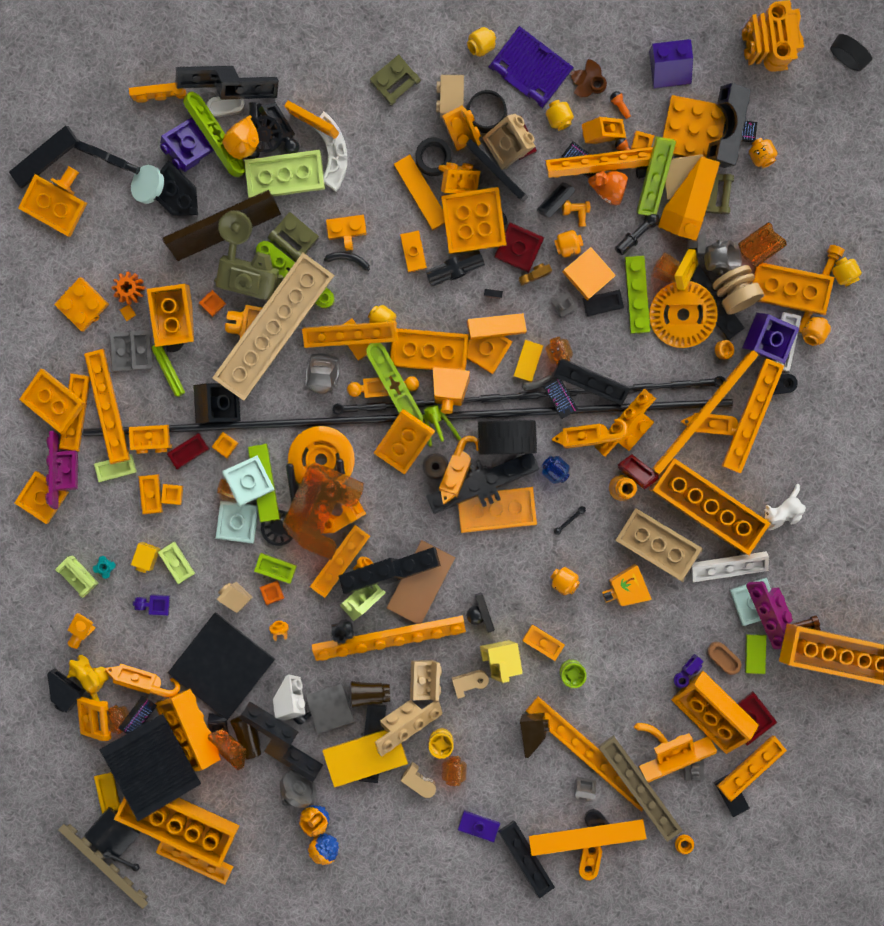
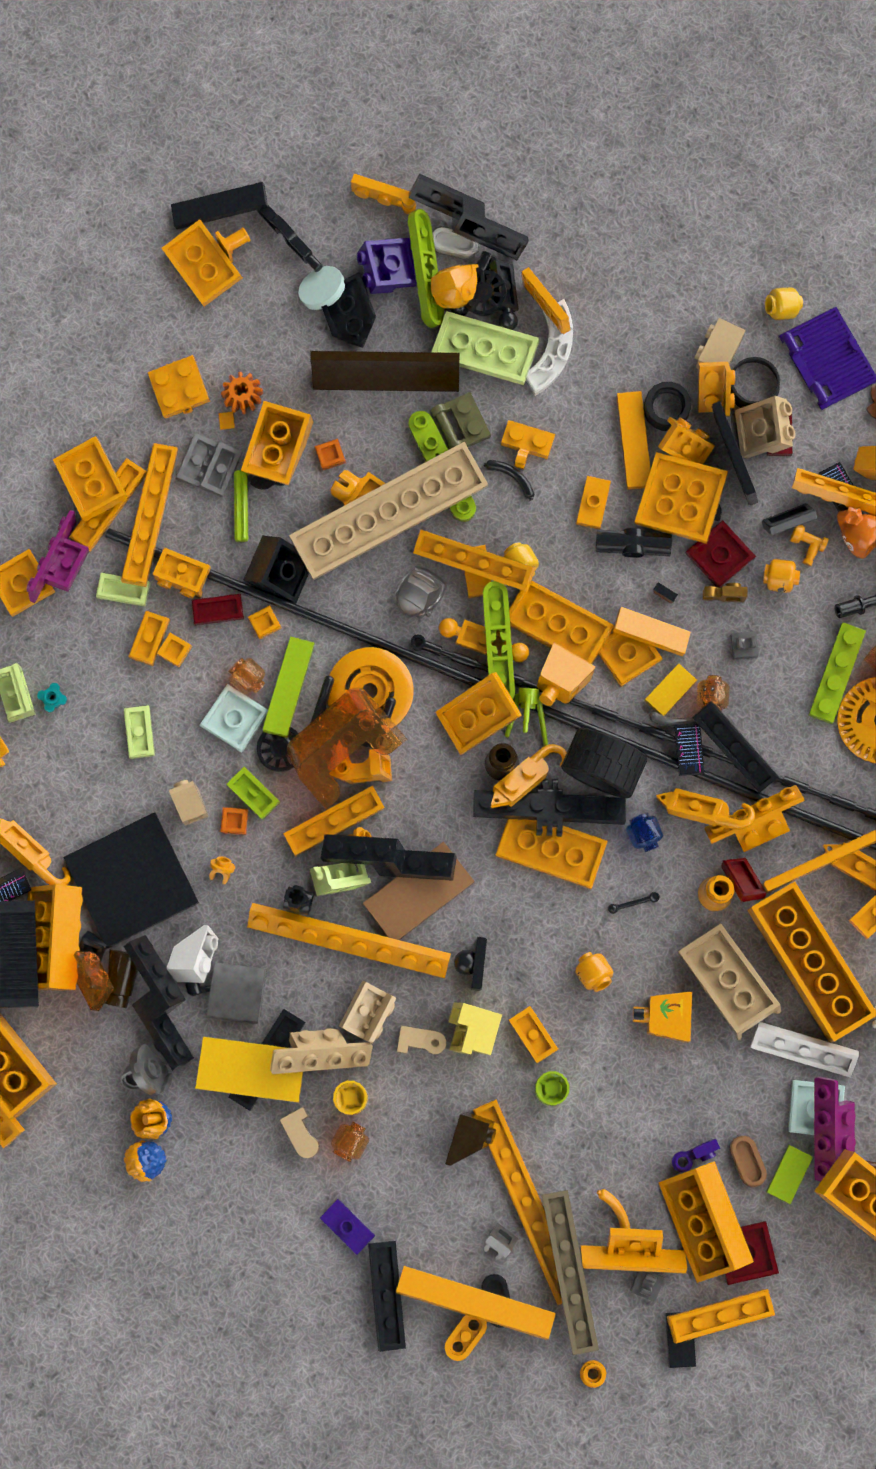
camera: 30 degrees right, 10 degrees down
(145, 557) = (106, 707): yellow brick -> none
(157, 604) = (91, 771): dark purple plate -> none
(242, 275) = (381, 437): olive piece -> none
(248, 480) = (272, 673): light aqua tile -> none
(369, 693) = (292, 995): dark brown plant -> none
(390, 75) = (662, 294): olive plate -> none
(559, 115) = (837, 425): yellow head -> none
(588, 273) = (790, 621): light orange tile -> none
(603, 303) = (791, 664): black tile -> none

